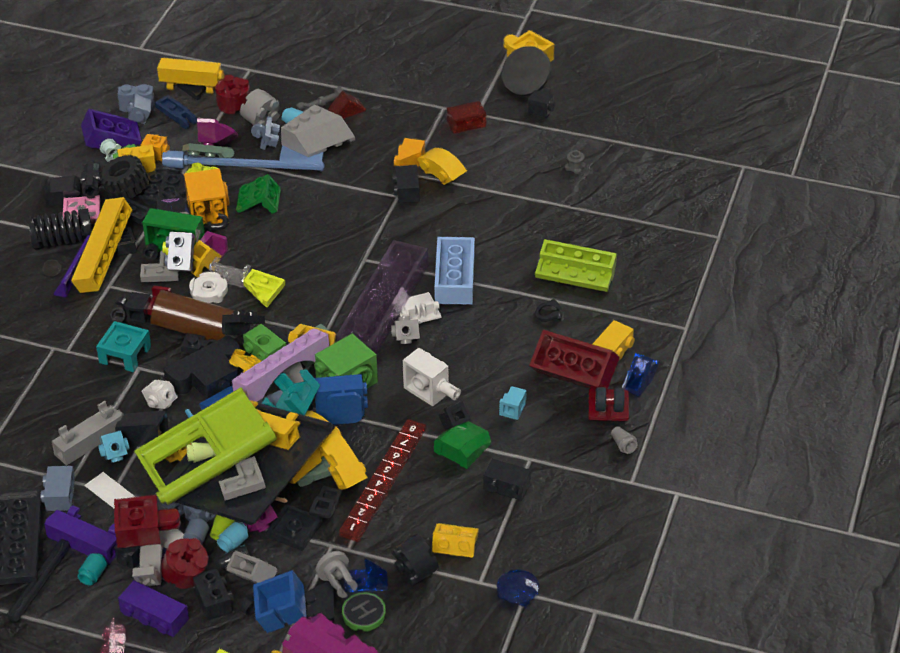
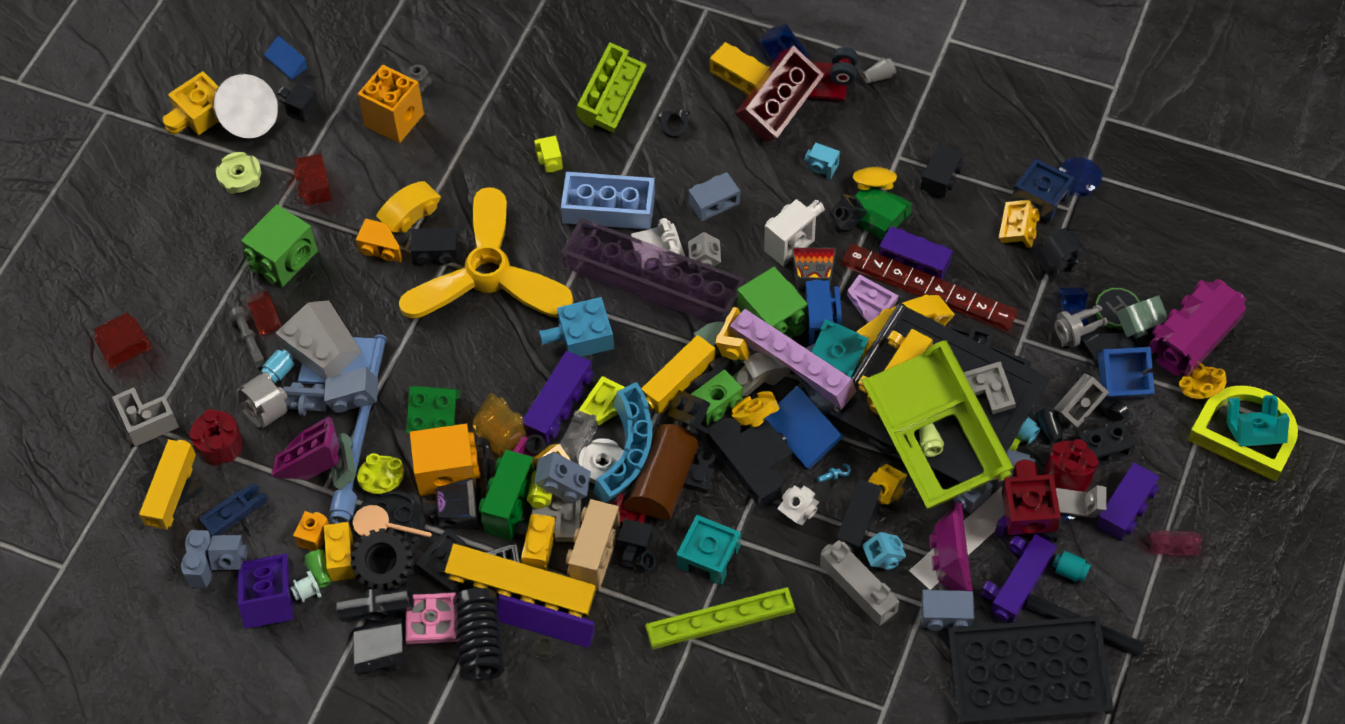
camera: 85 degrees left, 15 degrees up
(69, 362) = (720, 618): none -> lime tile
(102, 487) = (950, 551): none -> magenta wedge
(123, 276) = (593, 543): none -> tan brick
(132, 255) = (539, 541): none -> yellow brick
(160, 175) = (374, 517): none -> light nougat piece
(212, 291) = (637, 426): none -> dark azure brick
(223, 249) = (532, 442): none -> black hinge
(237, 227) = (499, 425): none -> clear yellow slope
(249, 57) = (145, 420): none -> light grey brick
(266, 258) = (558, 396): none -> dark purple brick
(268, 149) = (351, 390): none -> sand blue brick
(276, 311) = (678, 374): none -> yellow brick
(316, 44) = (121, 340): none -> clear red torso
(329, 266) = (582, 328): none -> dark azure brick
(344, 613) = (1142, 316): none -> sand green brick
(367, 438) = (870, 298): none -> lavender wing
(388, 212) = (489, 229): none -> yellow piece
(393, 399) = (812, 264): none -> torso
(396, 101) = (279, 246): none -> bright green brick
(414, 465) = (916, 252): none -> dark purple brick
(468, 335) = (714, 196): none -> sand blue brick
(478, 82) = (238, 183): none -> yellowish green plate
(491, 548) = (1044, 186): none -> dark blue panel
(496, 435) = (874, 177): none -> yellow dish
(503, 238) = (549, 153): none -> neon yellow brick
(536, 141) = (391, 103): none -> light orange brick
(587, 94) = (285, 58): none -> blue slope

